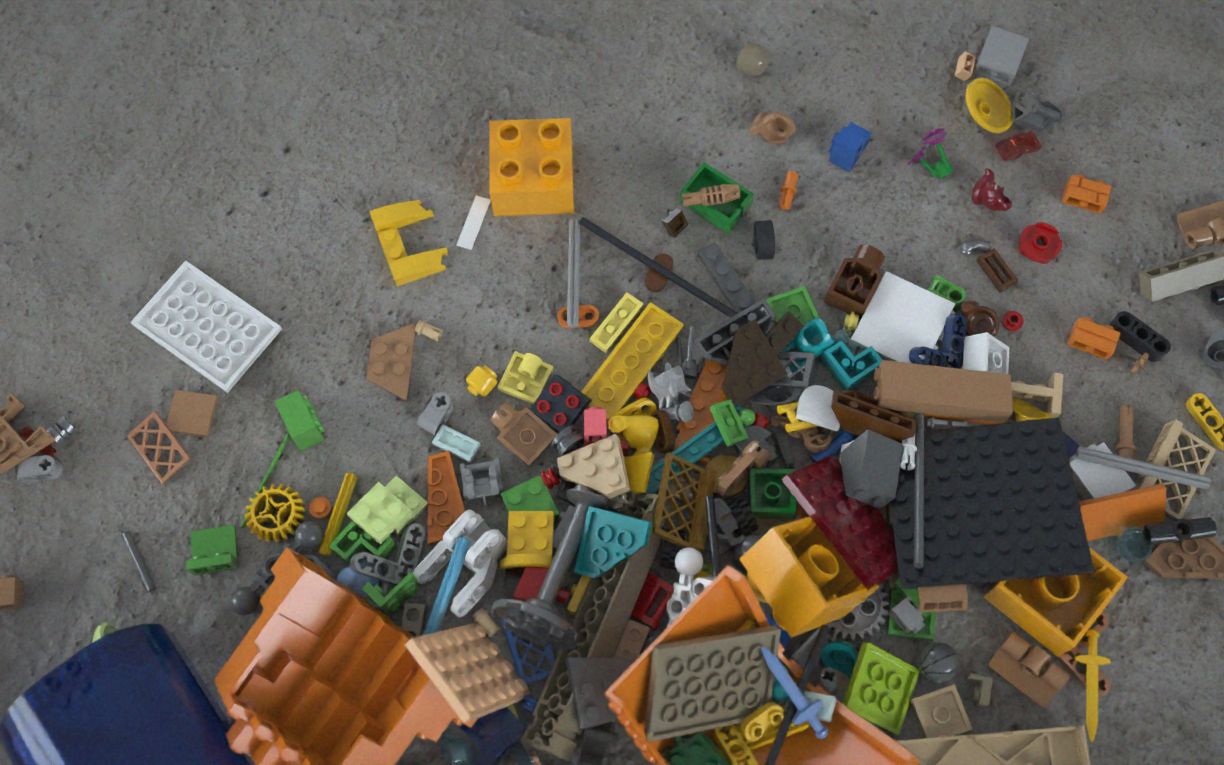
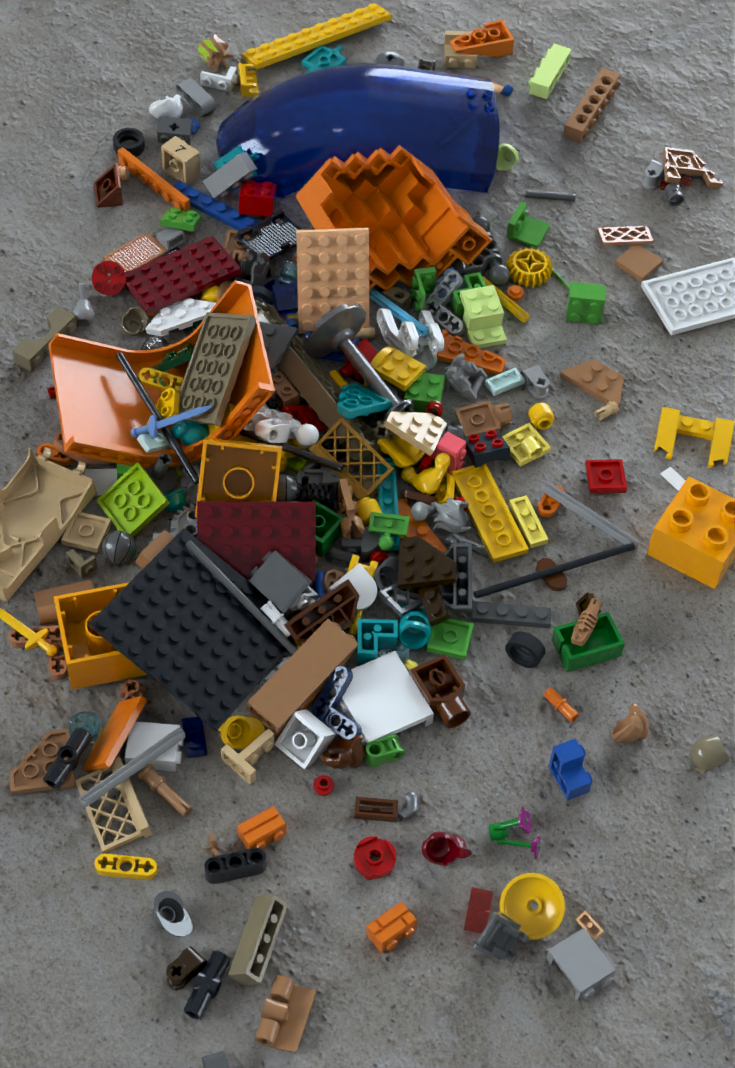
camera: 120 degrees right, 15 degrees down
(512, 288) = (605, 476): none -> red plate
(720, 458) = (365, 507): none -> yellow head

